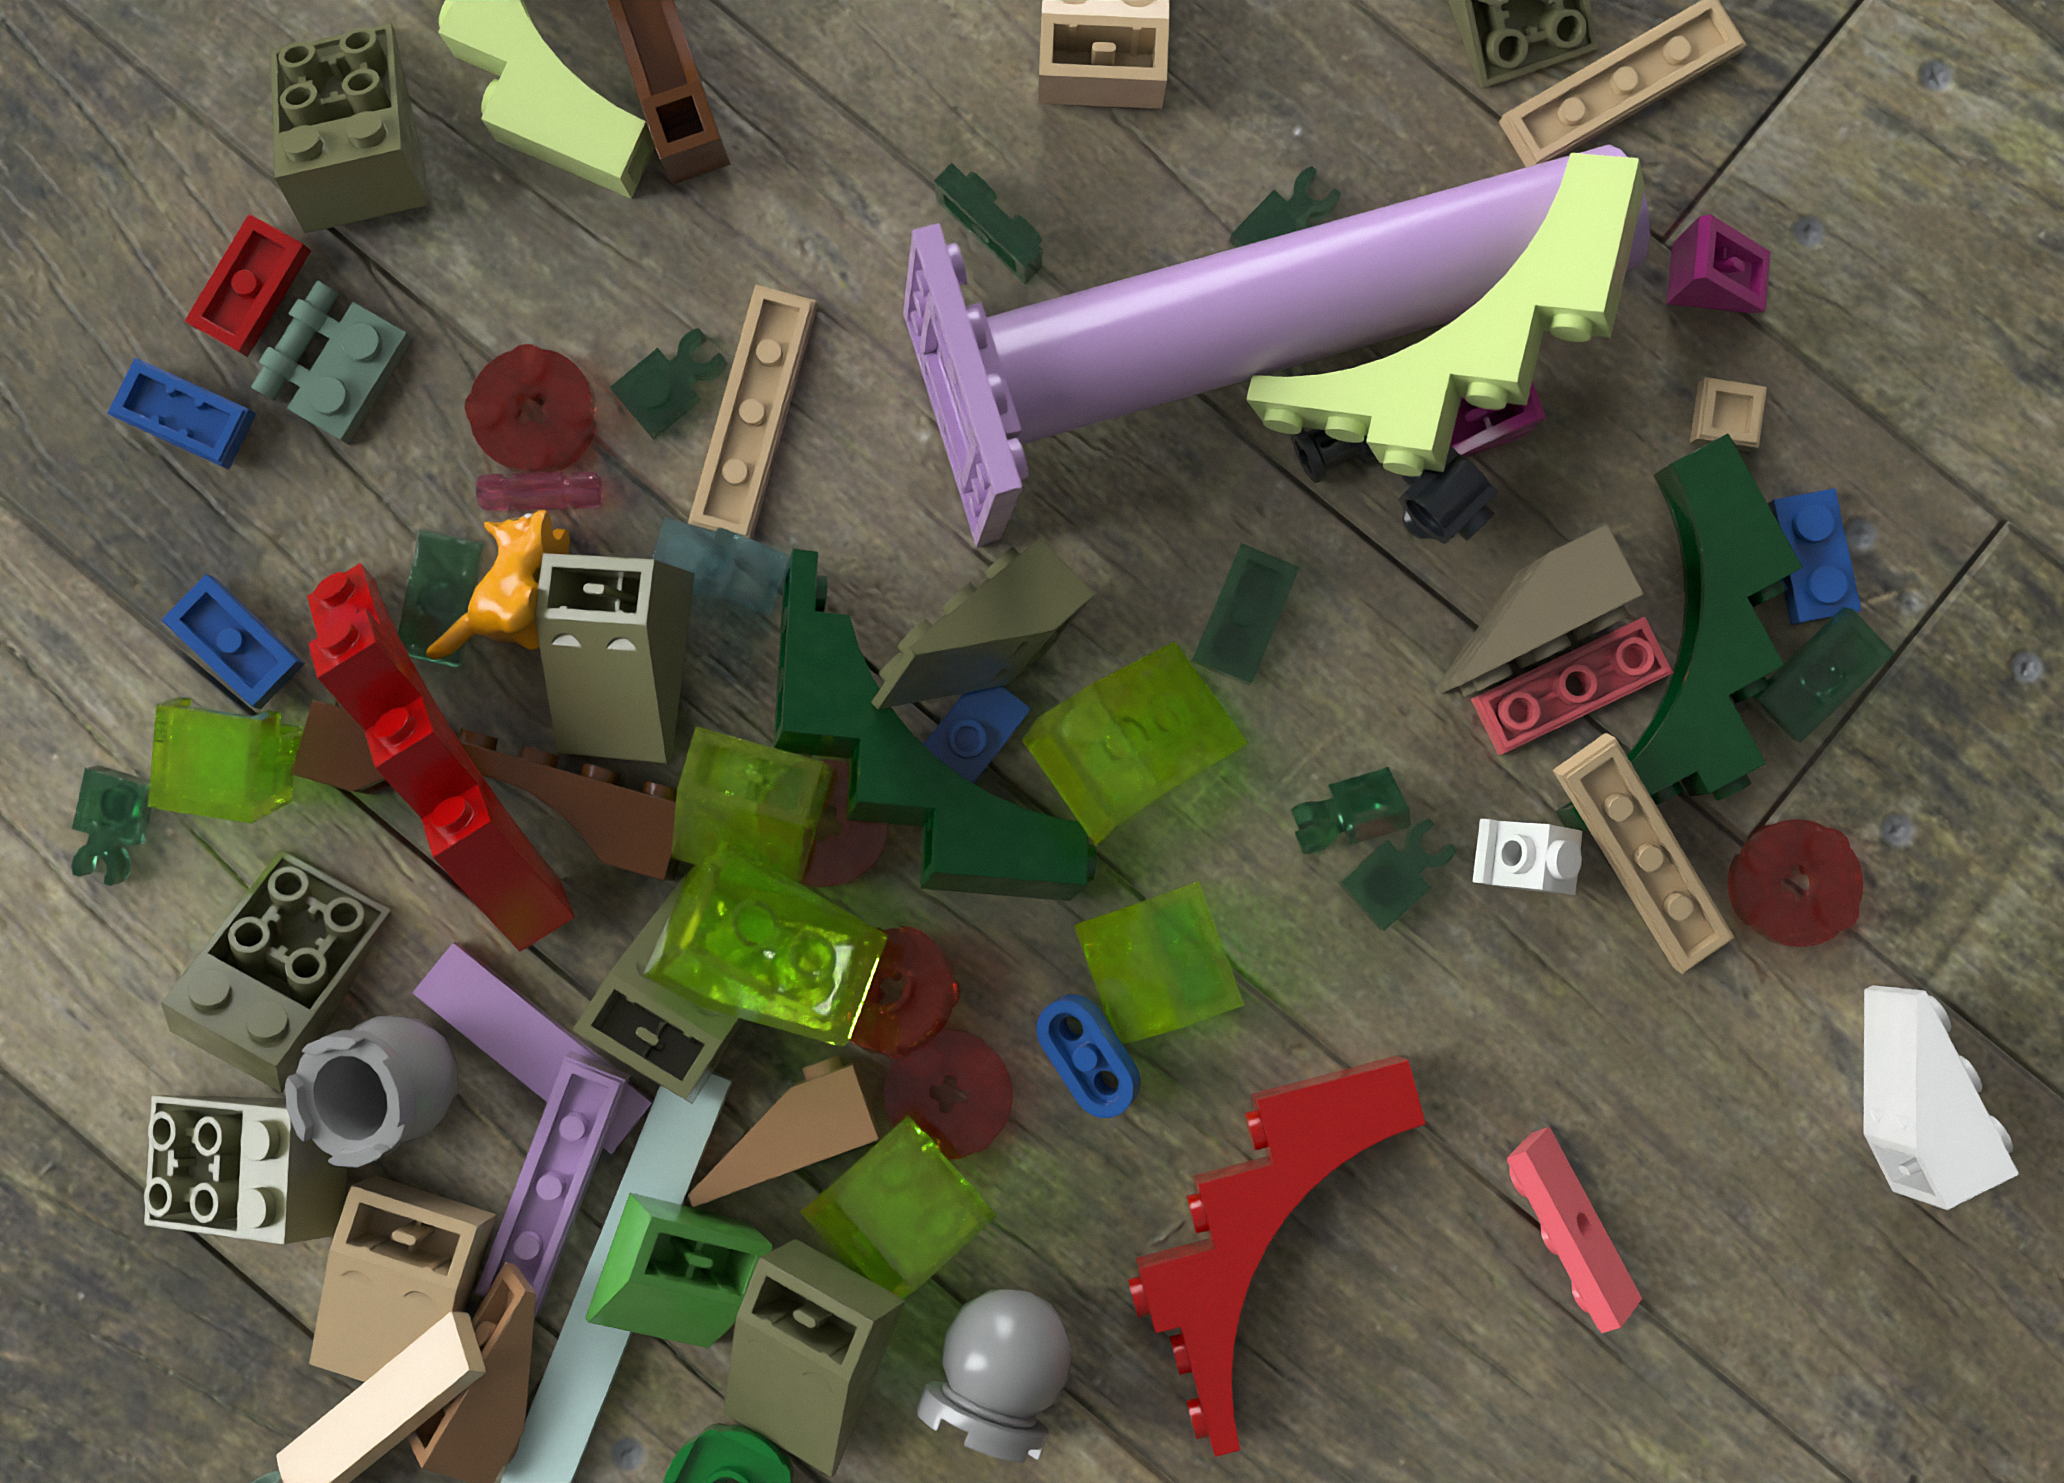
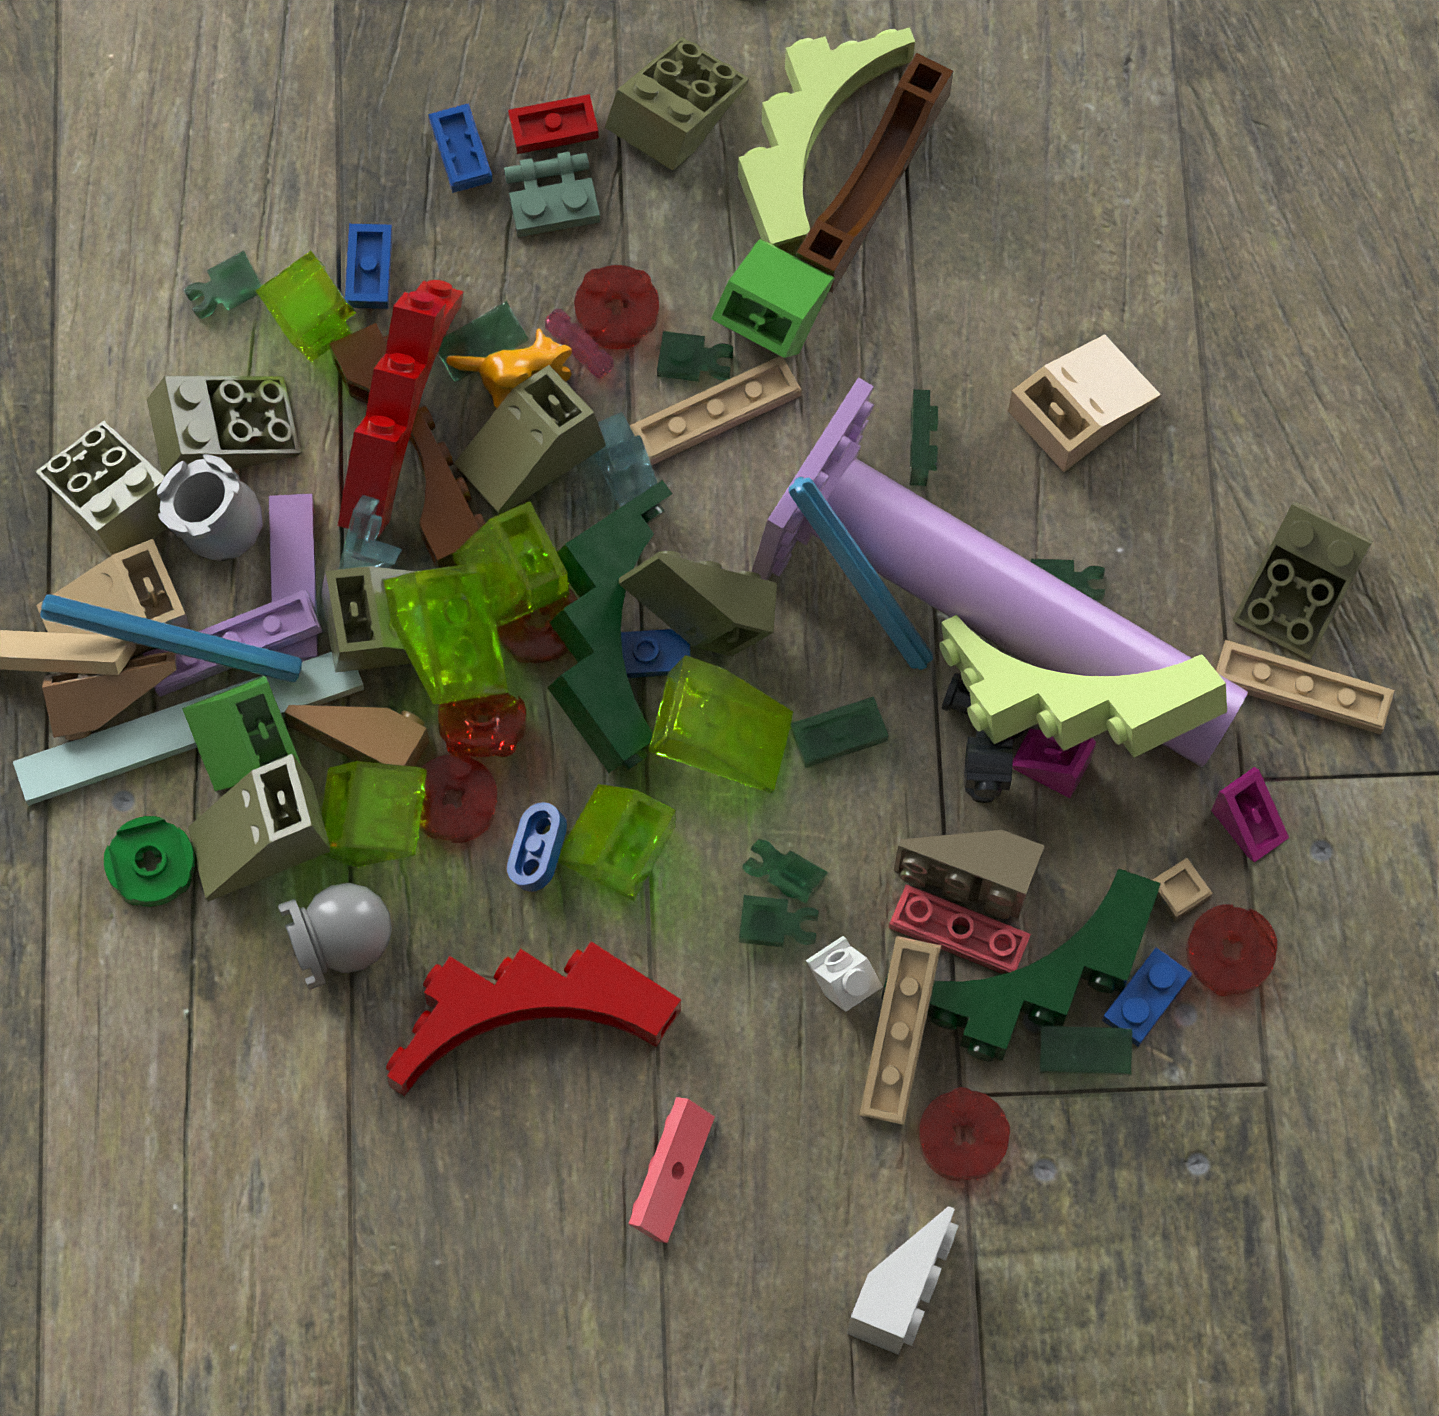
camera: 50 degrees right, 15 degrees down
(488, 1274) = (170, 638): none -> dark azure axle
(577, 952) = (361, 544): none -> clear light blue slope
(687, 235) = (773, 299): none -> bright green slope
(1113, 437) = (860, 572): none -> dark azure axle
(1873, 402) = (1237, 925): none -> clear red plate

